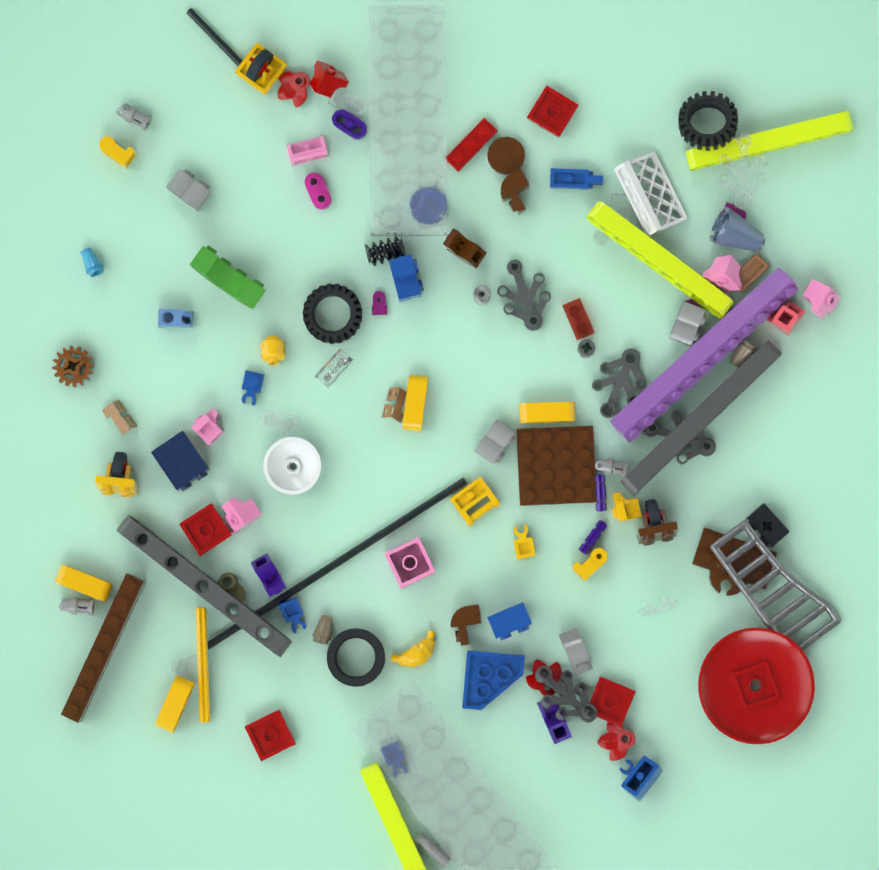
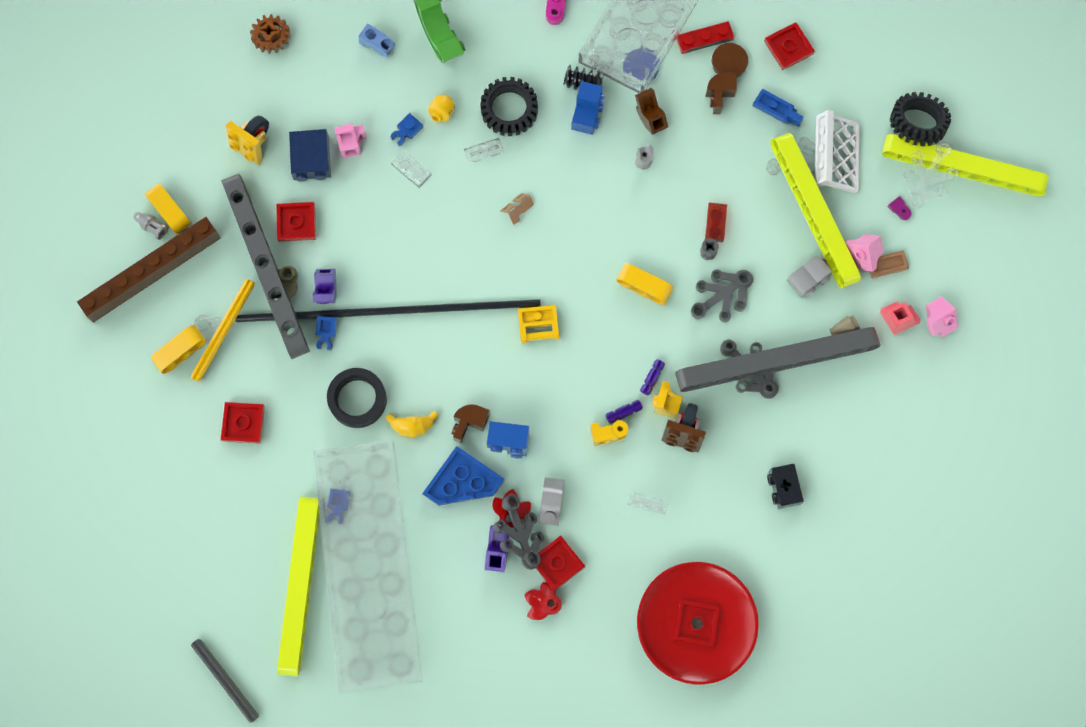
camera: 25 degrees right, 10 degrees down
(120, 422) = (278, 85): medium nougat piece -> none
(240, 513) = (332, 223): bright pink brick -> none
(278, 462) = (400, 196): white dish -> none
(322, 632) = (342, 360): dark tan cone -> none
(379, 308) = (552, 124): magenta piece -> none
(409, 562) = (451, 342): bright pink brick -> none
(415, 402) = (535, 214): yellow beam -> none
(433, 850) = (321, 604): light grey pin -> none
(495, 442) = (584, 284): light grey brick -> none
(523, 546) = (559, 384): yellow plate -> none
(525, 298) = (680, 180): dark grey plant -> none
(556, 465) = (626, 333): reddish brown plate -> none
(609, 465) = (673, 357): light grey piece -> none
(640, 777) = (545, 646): blue brick -> none
(704, 355) = (809, 309): medium lavender brick -> none
(707, 560) = (737, 502): reddish brown plate -> none
(736, 232) = (895, 223): sand blue cone -> none
(778, 569) = (775, 529): flat silver bar -> none

